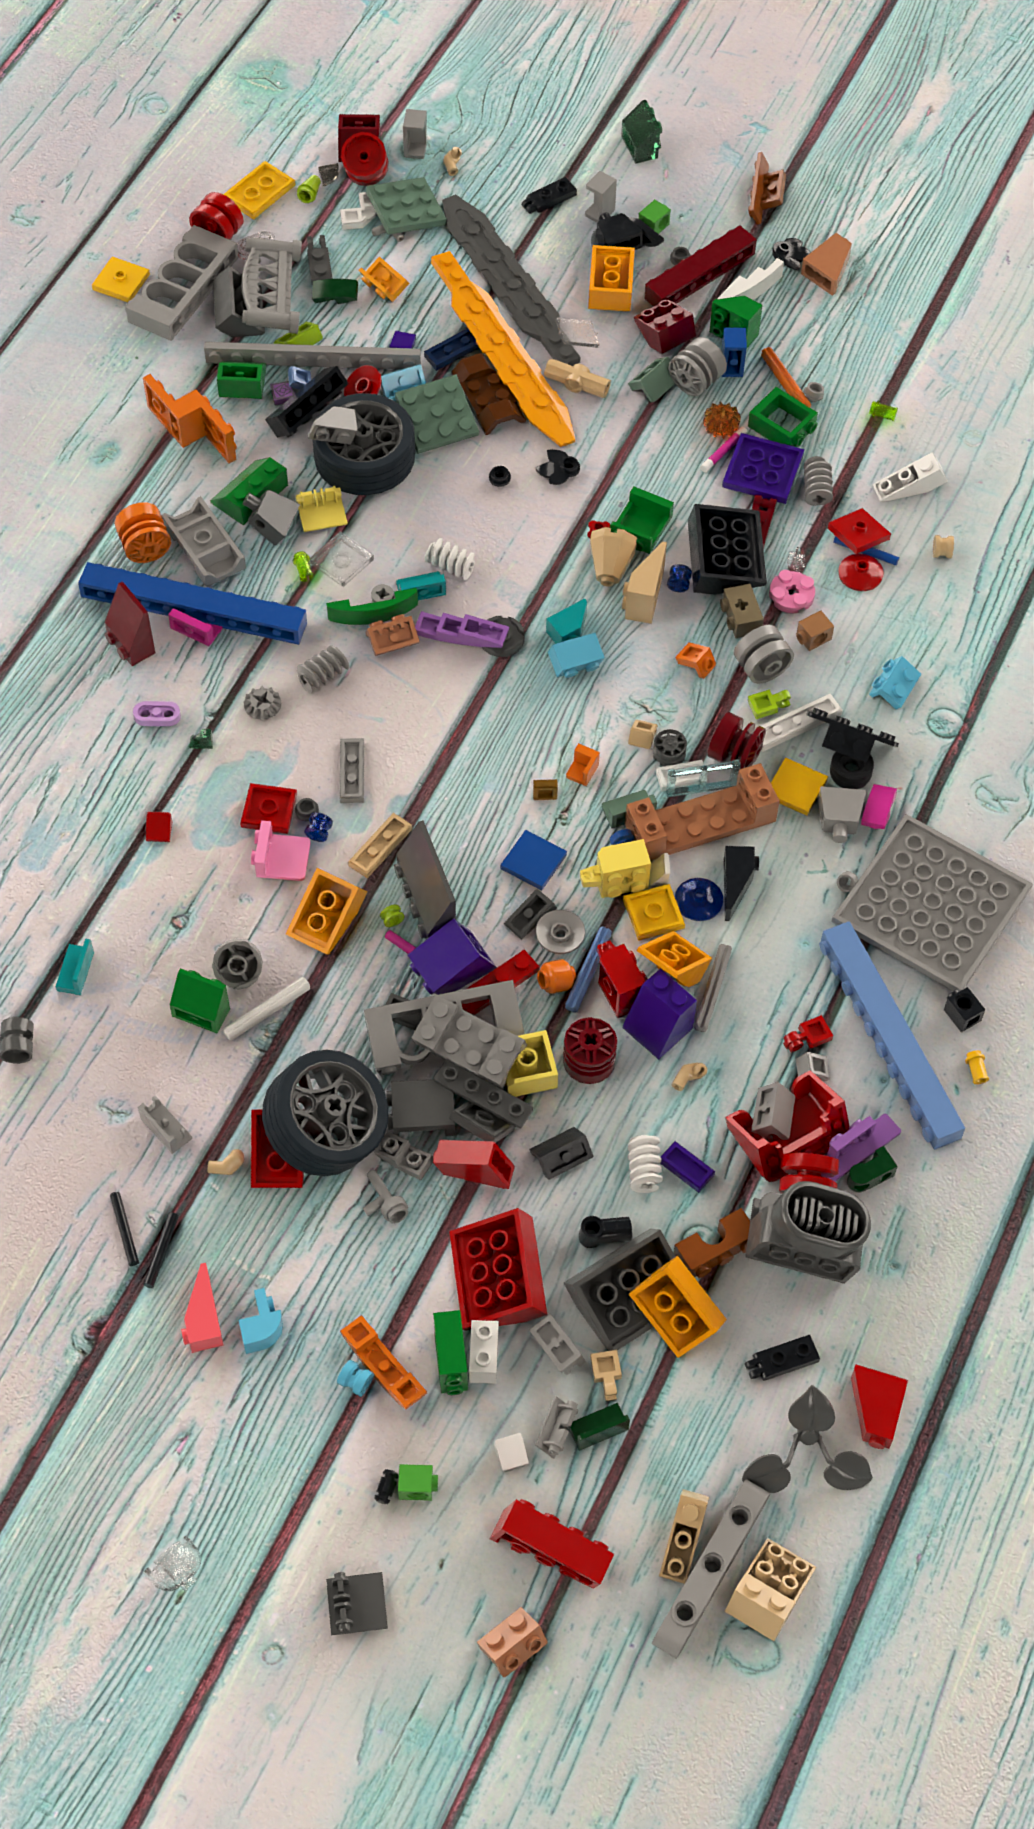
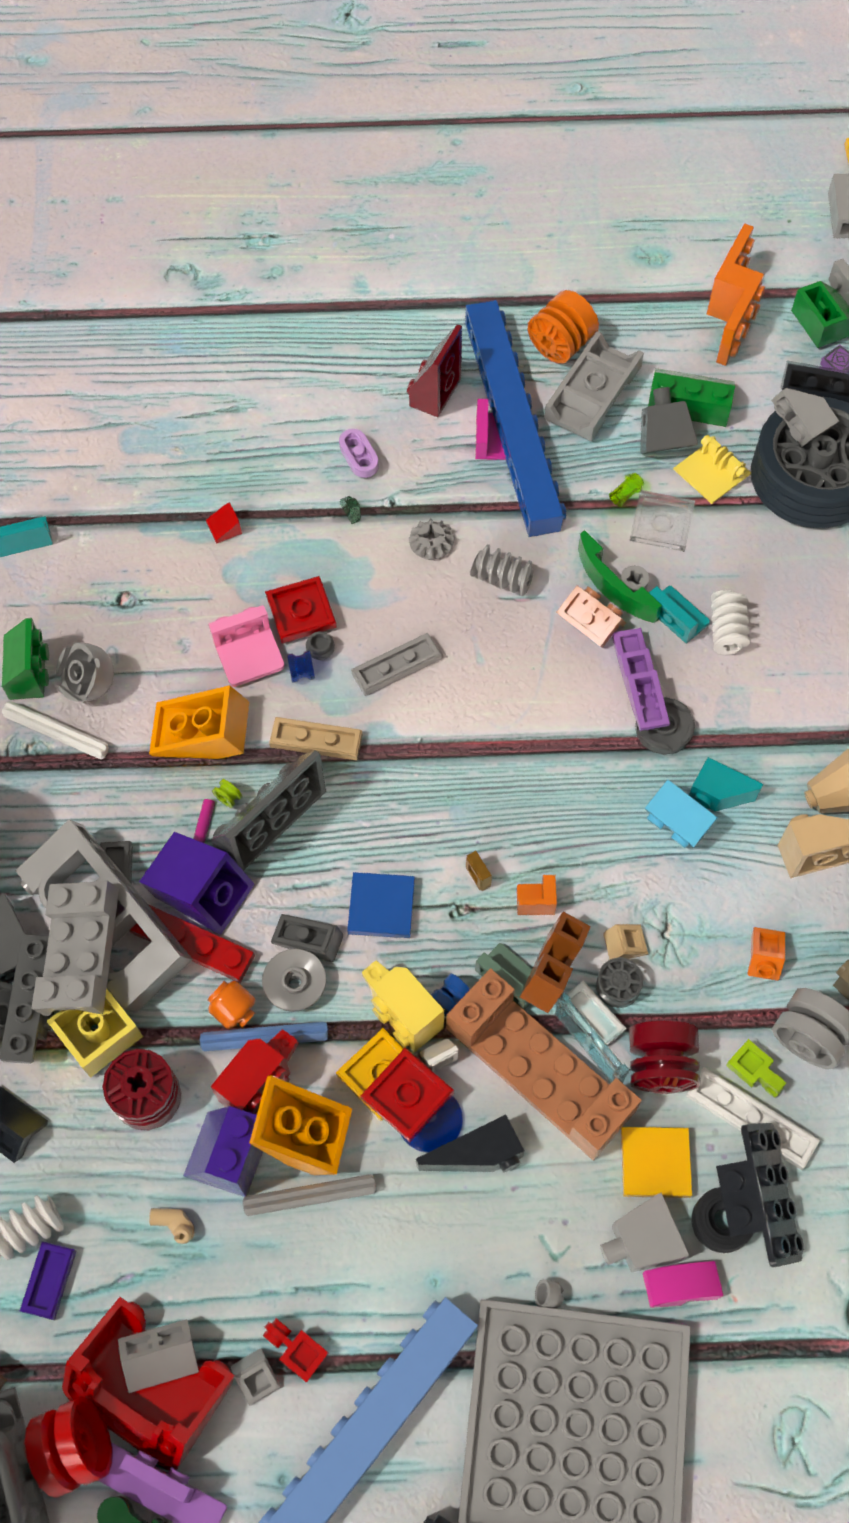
camera: 65 degrees right, 5 degrees up
(650, 776) = (553, 963): none -> dark orange arch
(680, 897) = (407, 1094): none -> red plate

